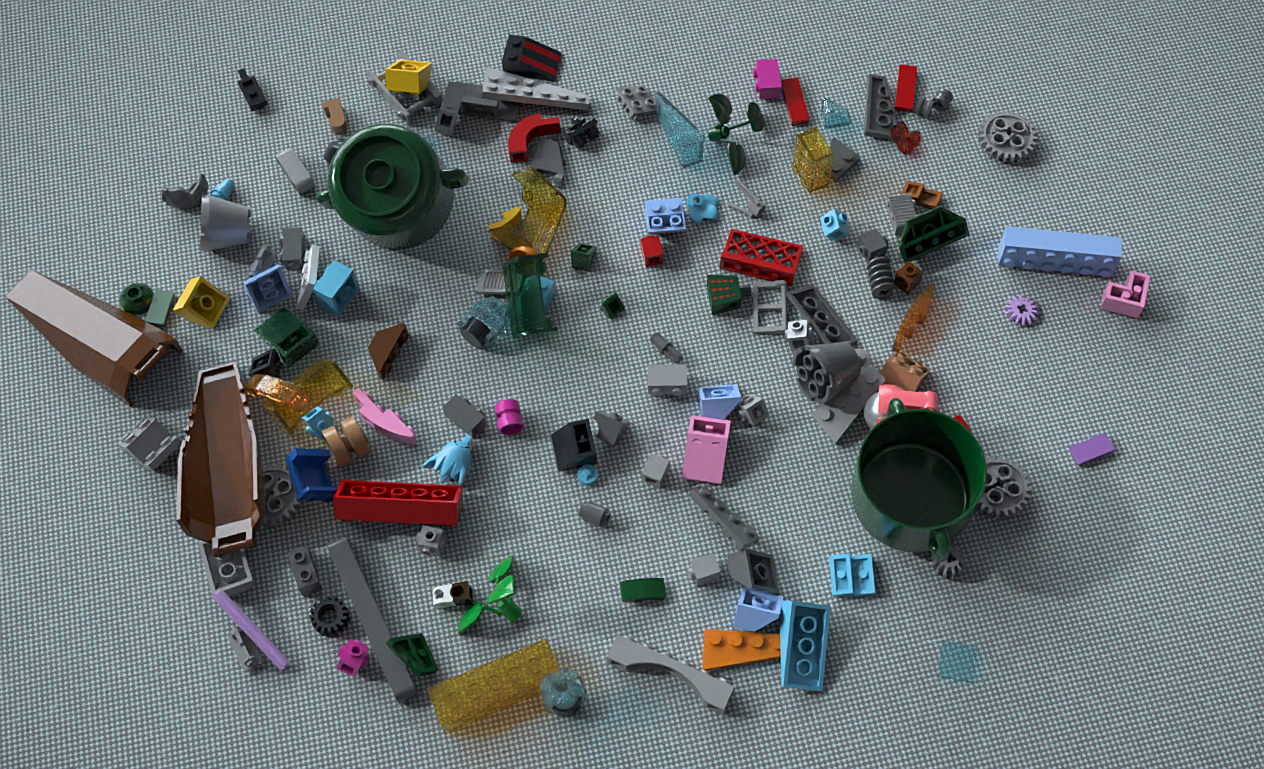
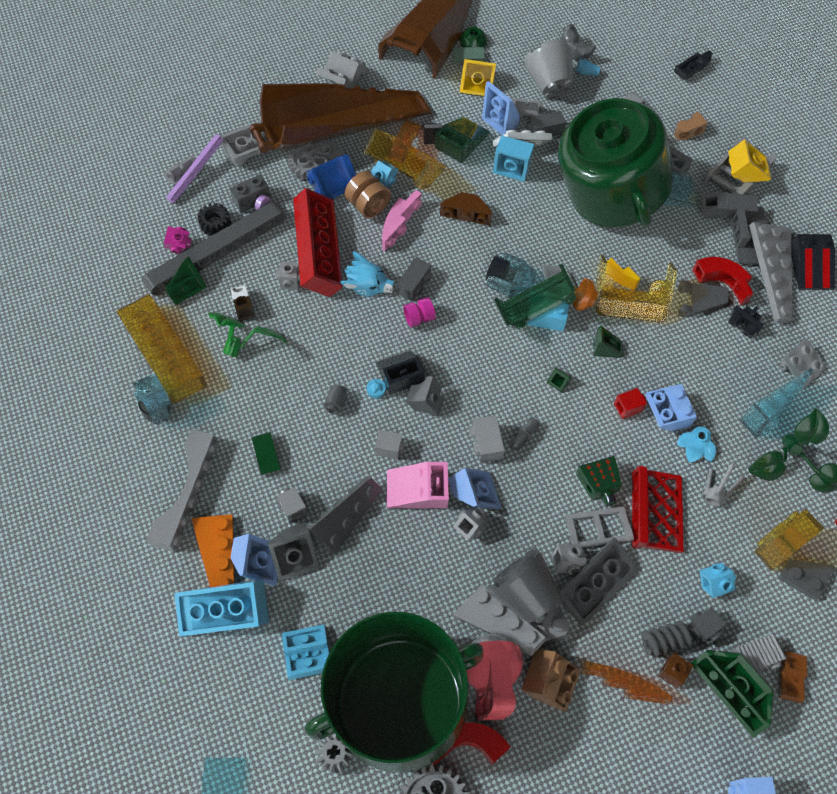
camera: 75 degrees right, 0 degrees up
(321, 560) = (262, 201): none -> lavender tile

